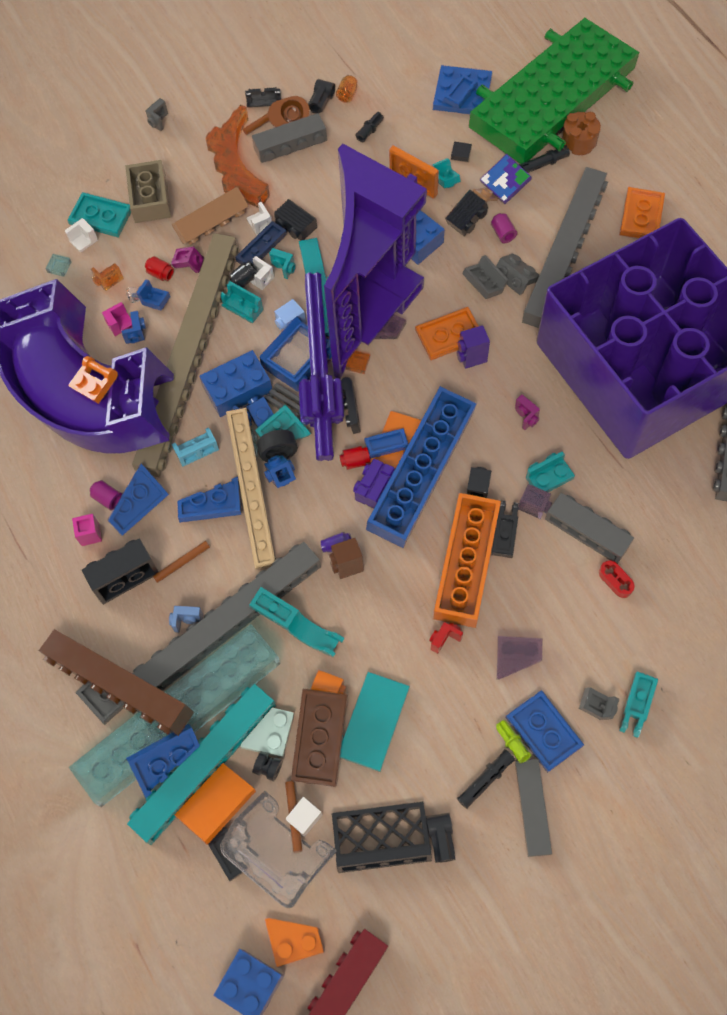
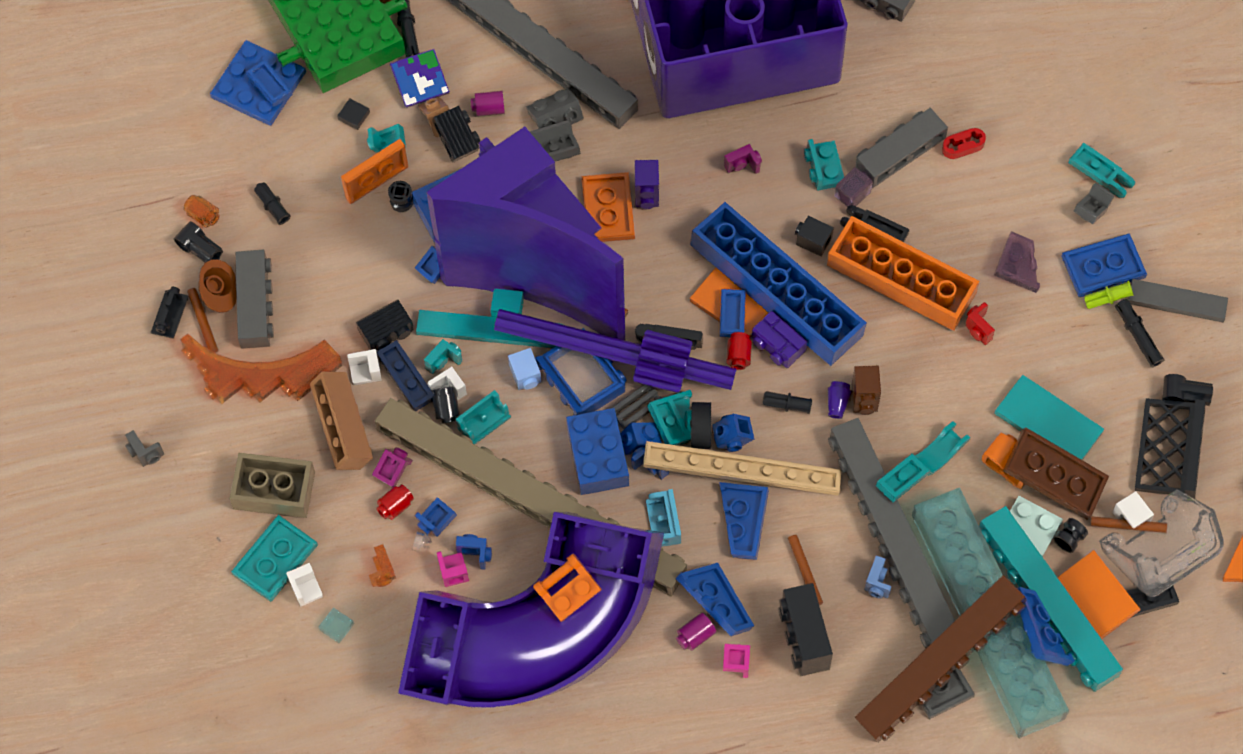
camera: 75 degrees left, 0 degrees up
(322, 506) = (787, 402): none -> black axle

